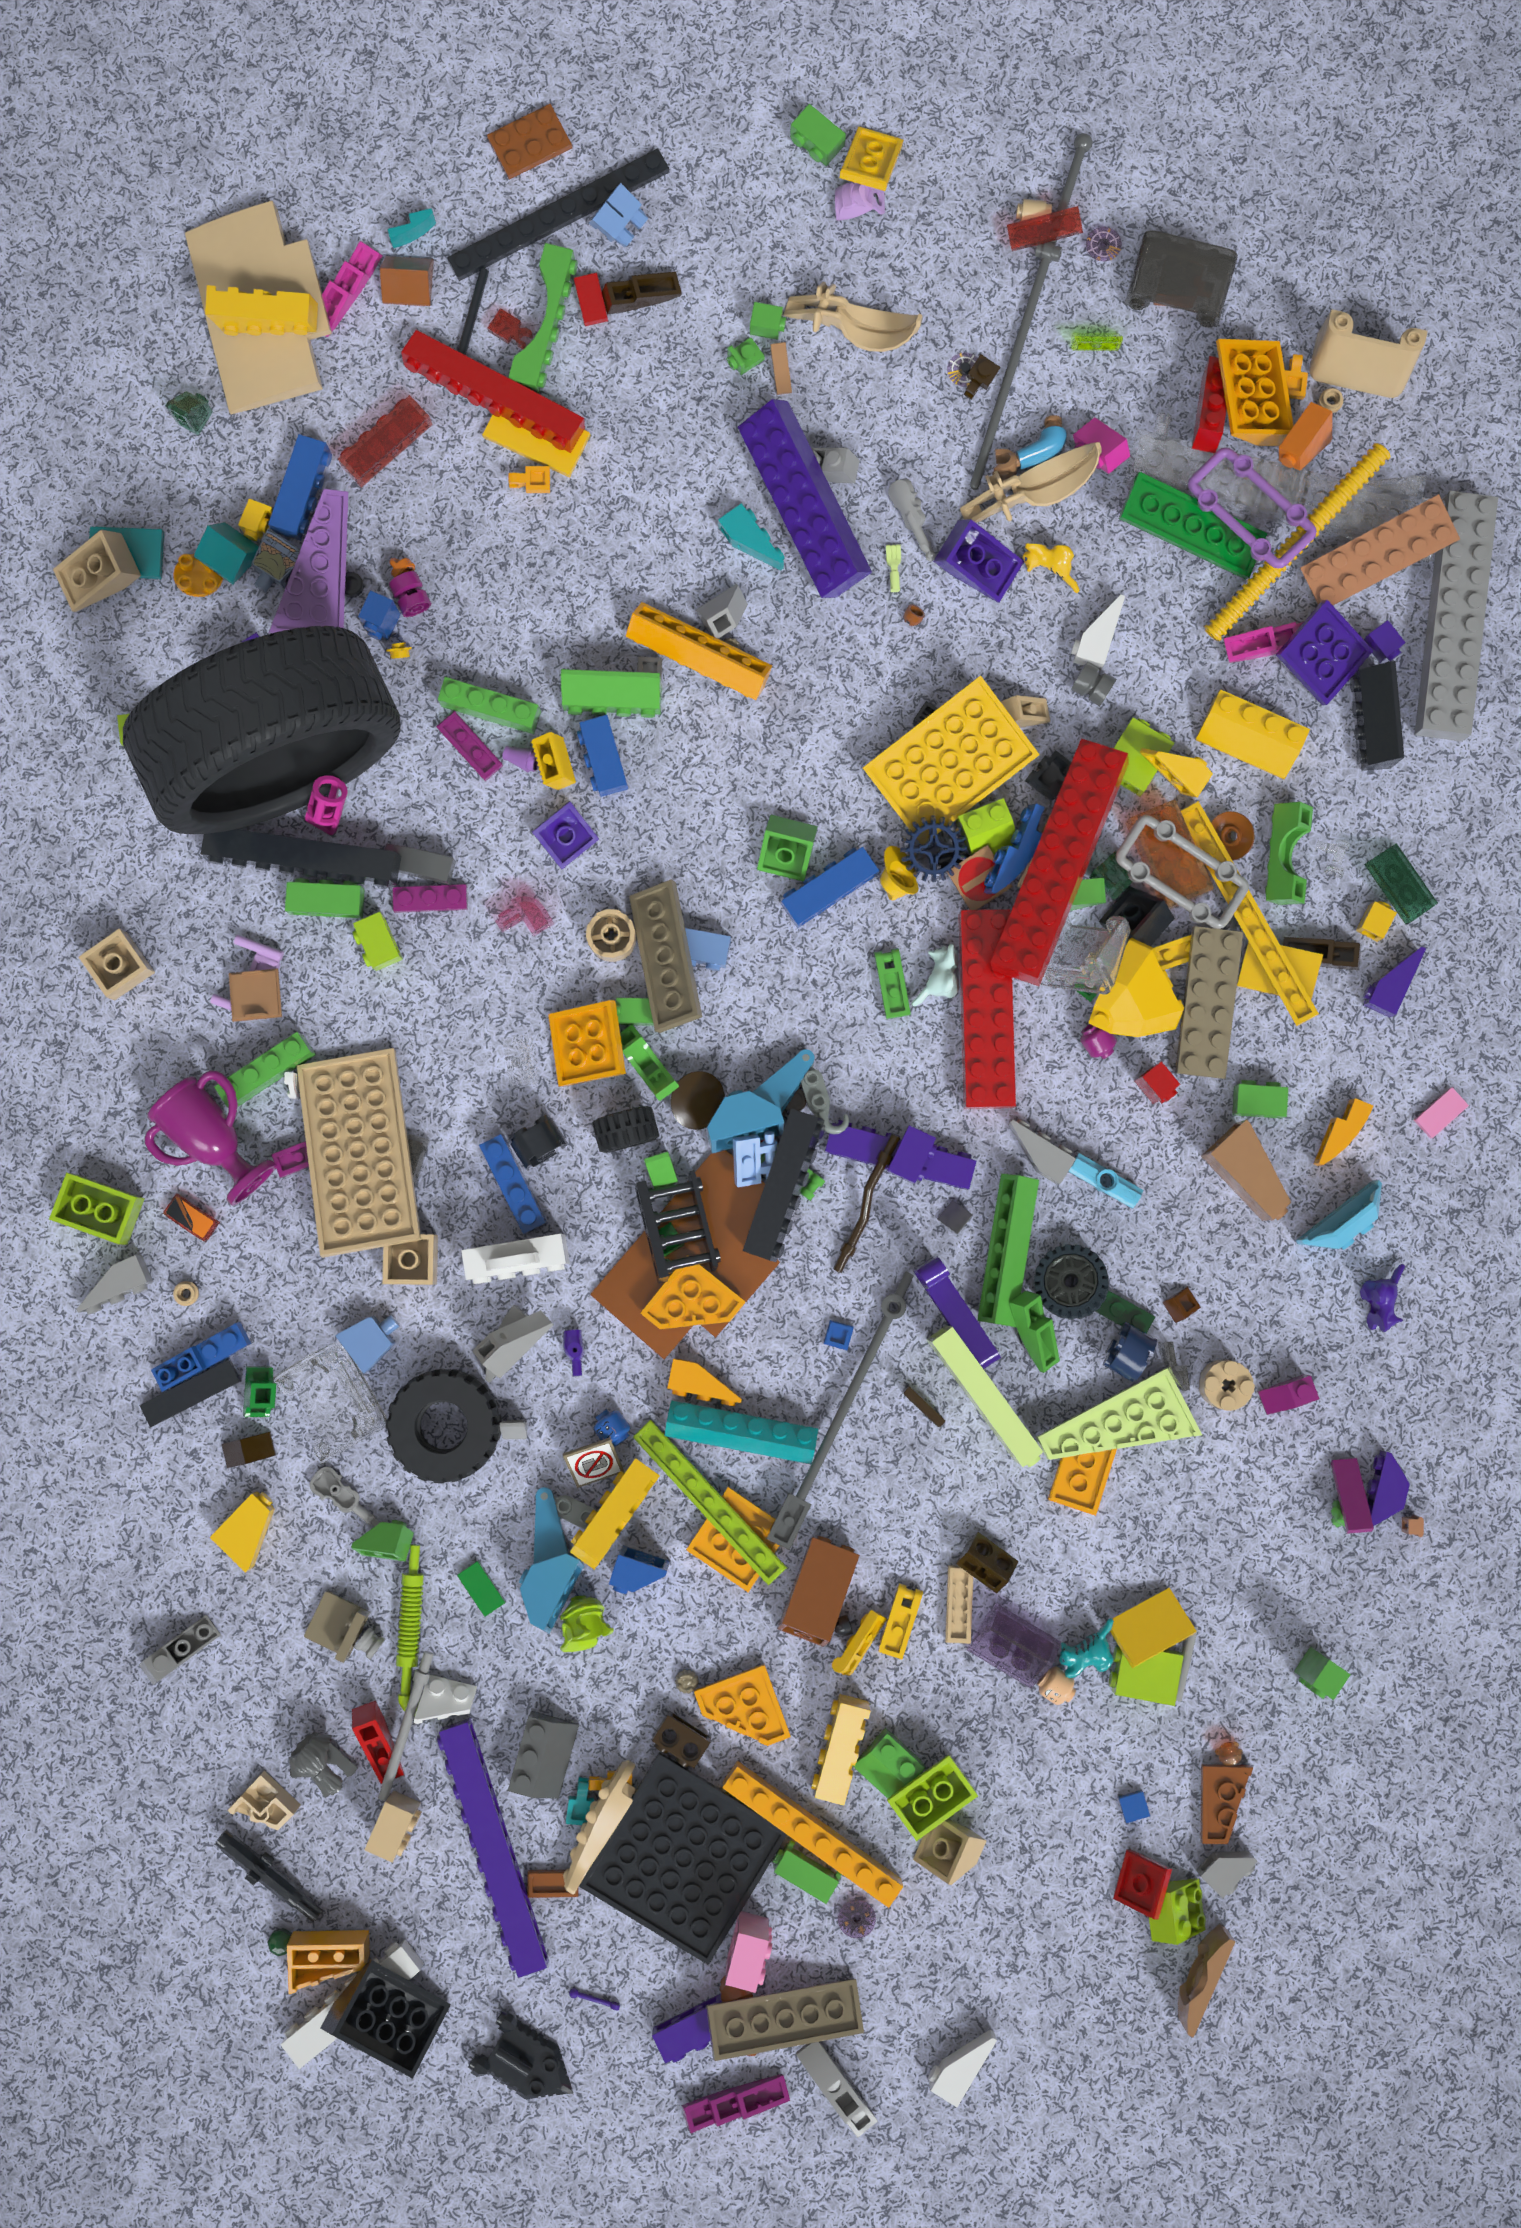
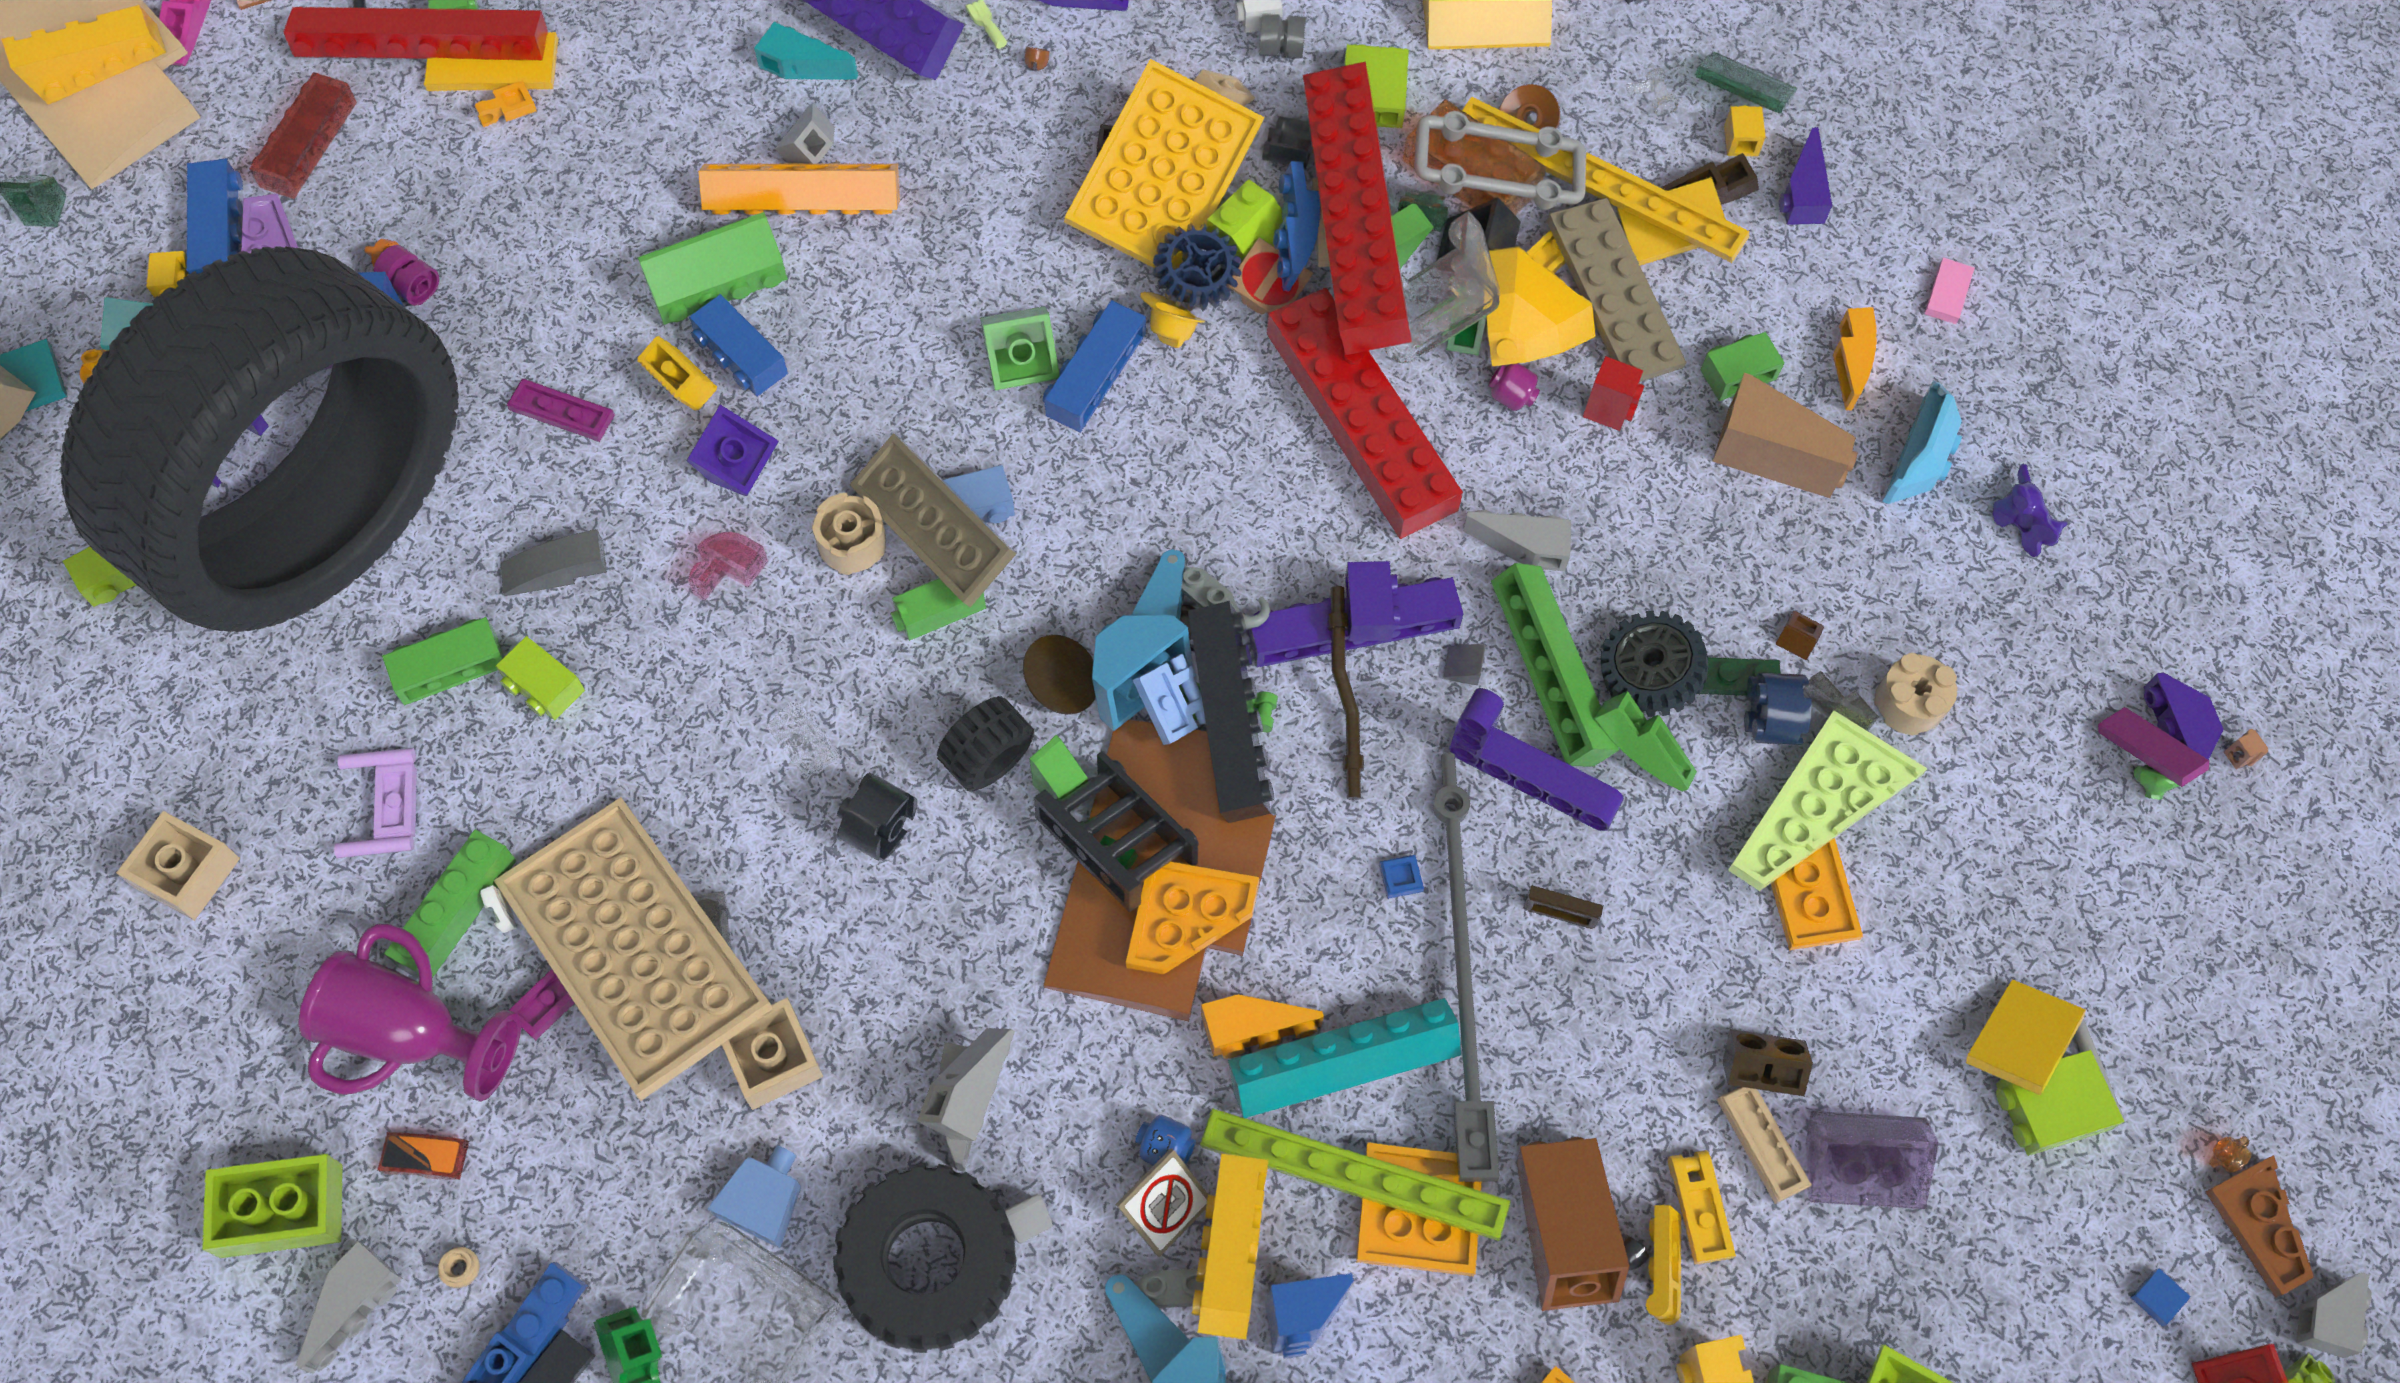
camera: 30 degrees left, 20 degrees down
(255, 995) = (395, 815): medium nougat piece -> none
(302, 855) = (386, 618): black brick -> none
(326, 811) = (397, 548): dark pink piece -> none
(430, 898) = (588, 601): magenta plate -> none
(489, 705) = (565, 350): bright green brick -> none
(513, 1184) = (868, 889): blue brick -> none
(516, 1256) = (918, 976): white brick -> none
(521, 757) = (637, 391): medium lavender cone -> none
(571, 1342) = (1058, 1063): dark purple piece -> none
(587, 1043) = (881, 669): light orange plate -> none
(647, 1063) = (969, 661): bright green arch -> none
(892, 984) = (1232, 438): bright green plate -> none
(942, 979) = (1289, 400): light aqua animal -> none
(985, 1396) = (1637, 842): yellowish green brick -> none
(1056, 1686) = (1958, 1181): light nougat head -> none
(1091, 1651) = (1973, 1106): teal animal -> none
(1119, 1189) = (1640, 534): medium azure piece -> none
(1184, 773) = (1429, 69): yellow slope -> none
(1288, 1394) = (1996, 670): magenta slope -> none
(1289, 825) = (1587, 76): bright green arch -> none
(1321, 1674) = (2275, 974): bright green brick -> none

